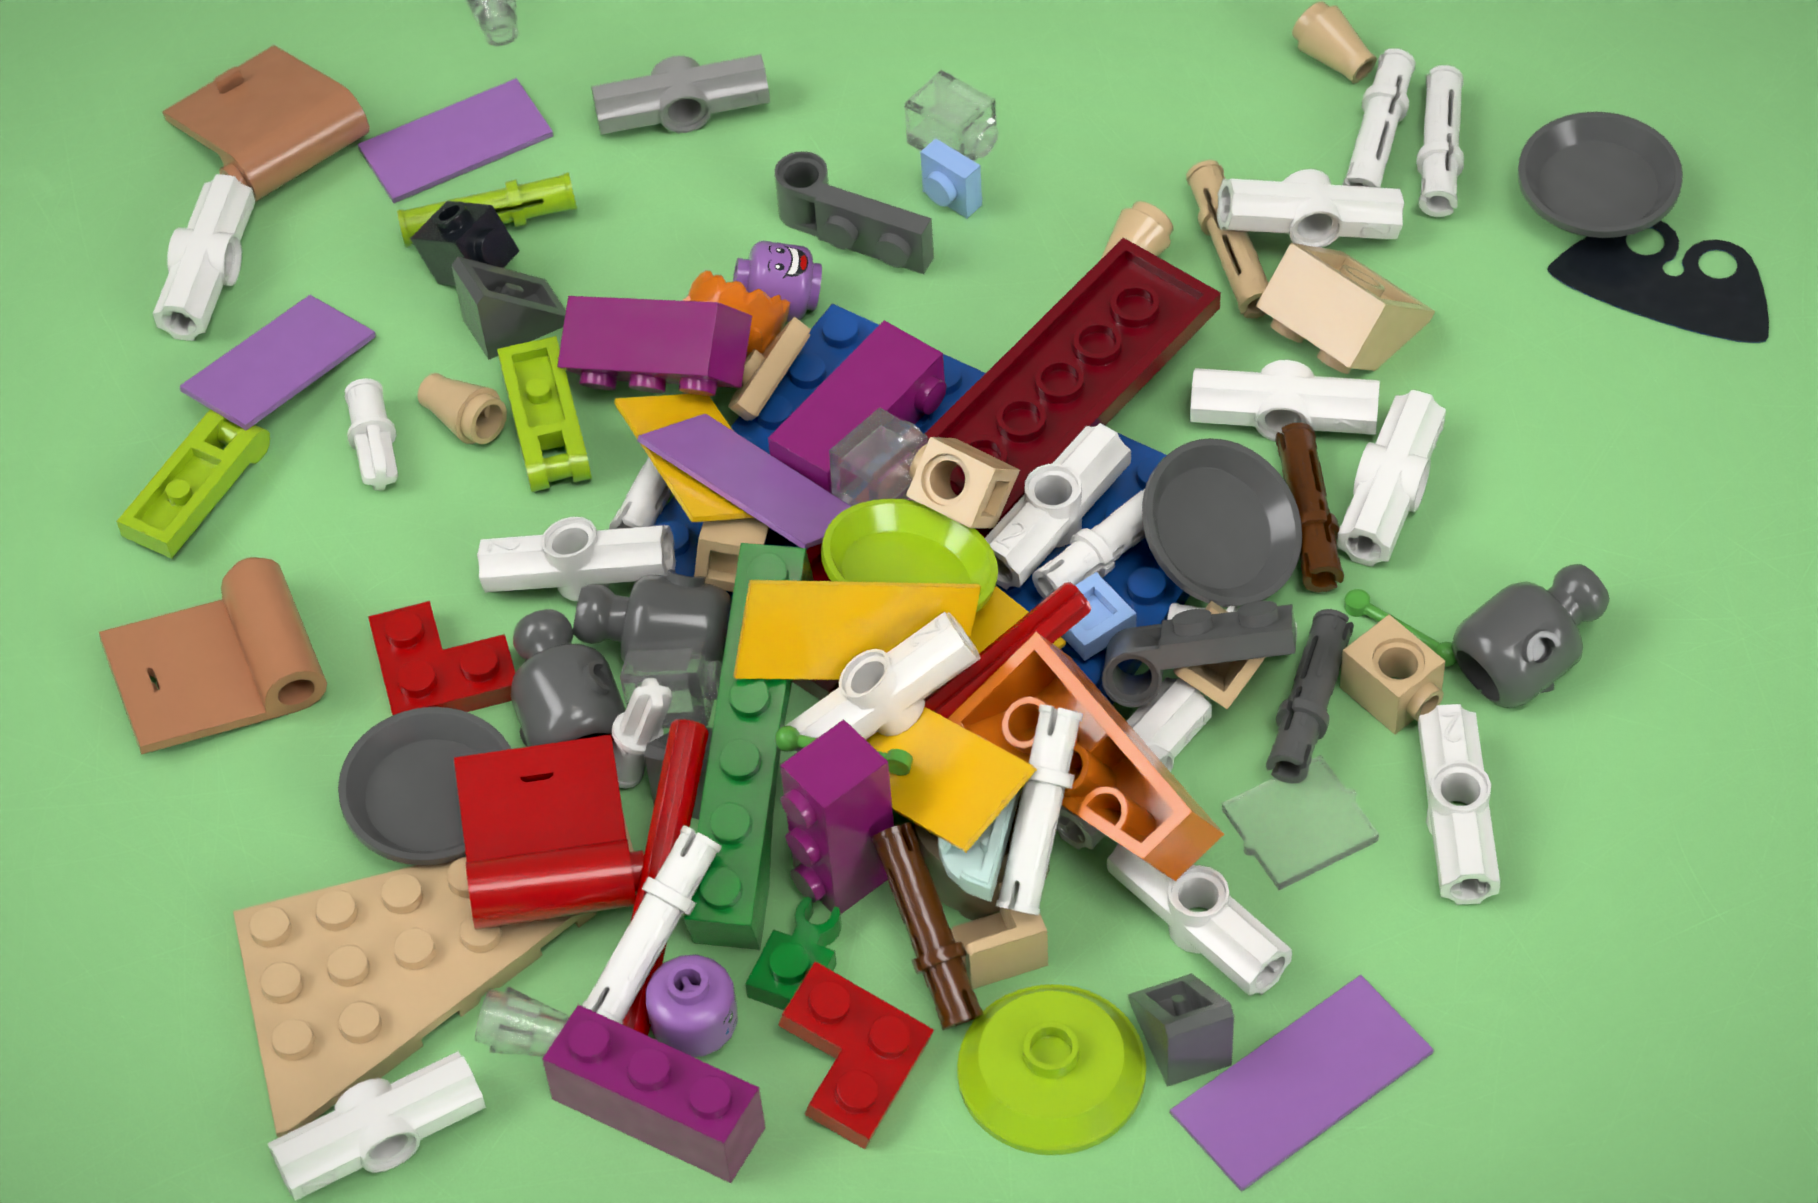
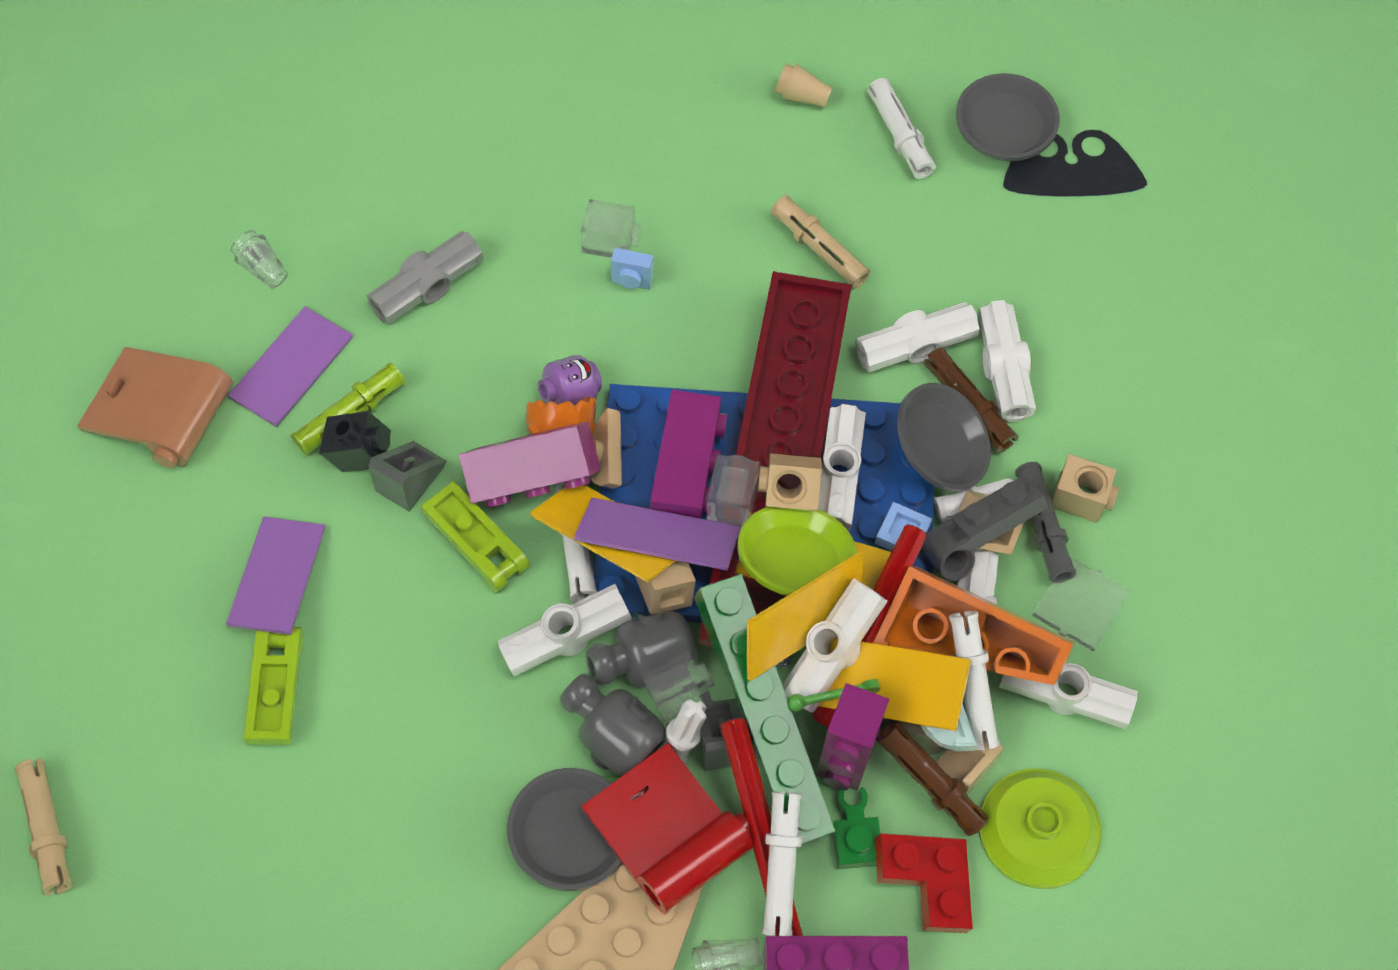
camera: 35 degrees left, 10 degrees up
(204, 257) = (179, 522): white piece -> none
(216, 661) = (371, 803): nougat door -> none
(371, 433) = (371, 599): white axle -> none
(425, 675) = (517, 752): red plate -> none
(465, 408) = (423, 555): tan cone -> none
(692, 1005) = (818, 911): medium lavender head -> none
(847, 218) = (584, 322): dark grey plate -> none
(1094, 548) = (880, 485): white pin -> none
(1143, 226) = (765, 259): tan cone -> none
(1185, 1027) = (1101, 763): dark grey slope -> none
(1301, 1082) = (1178, 767): medium lavender piece -> none
(1310, 208) = (861, 206): white piece -> none
(1340, 308) = (913, 263): tan slope -> none
(1358, 604) = (1029, 449): bright green hinge -> none
(1383, 107) = (856, 118): white pin -> none
(1460, 833) = (1181, 575): white piece -> none
(1528, 635) = (1143, 430): dark grey piece -> none

